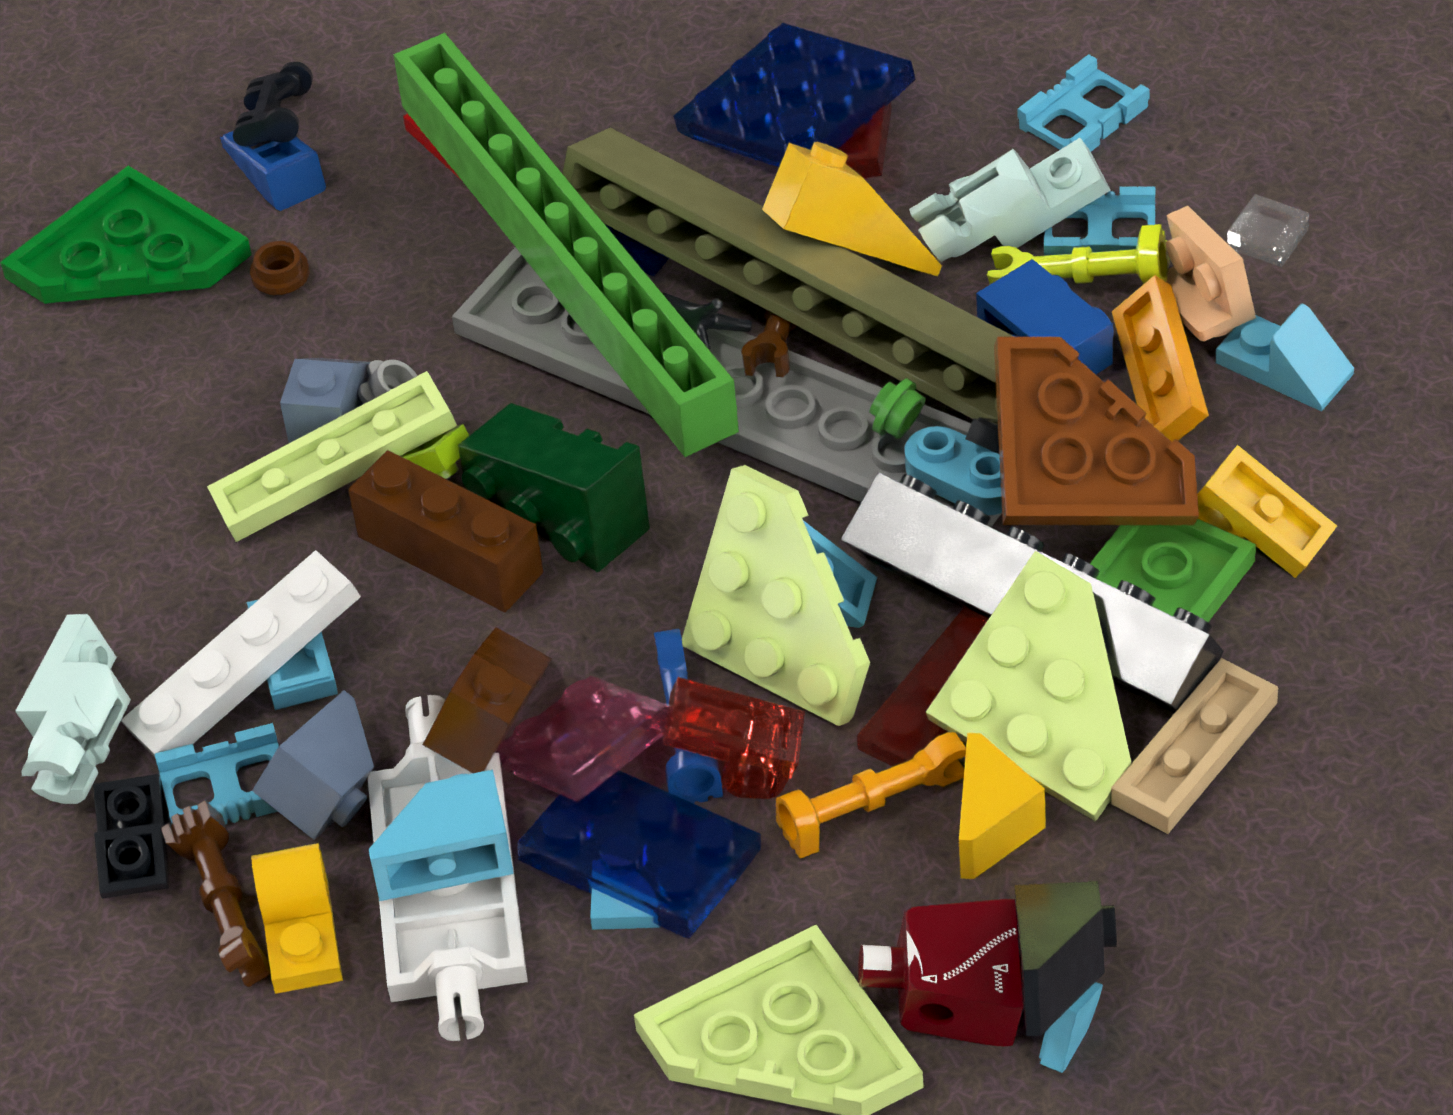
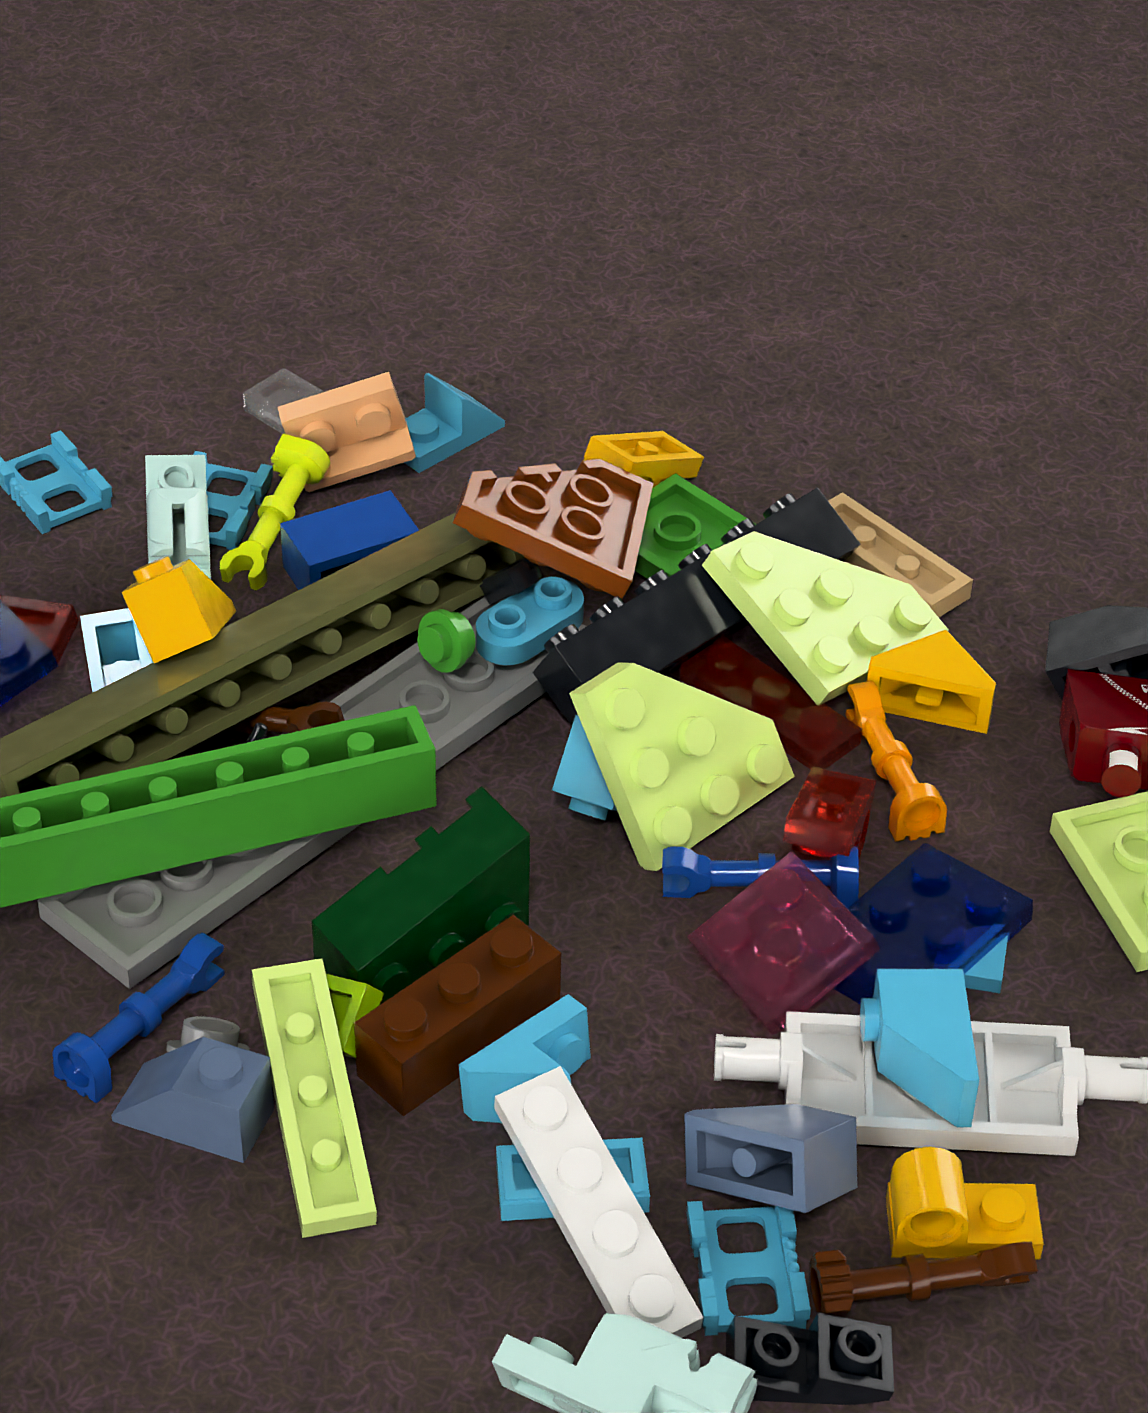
camera: 85 degrees left, 5 degrees down
(355, 323) = (84, 1059): none -> blue piece
(403, 587) = (538, 1045): none -> medium azure slope
(486, 701) = (755, 985): reddish brown slope -> none
(1160, 359) = (421, 486): light orange plate -> none

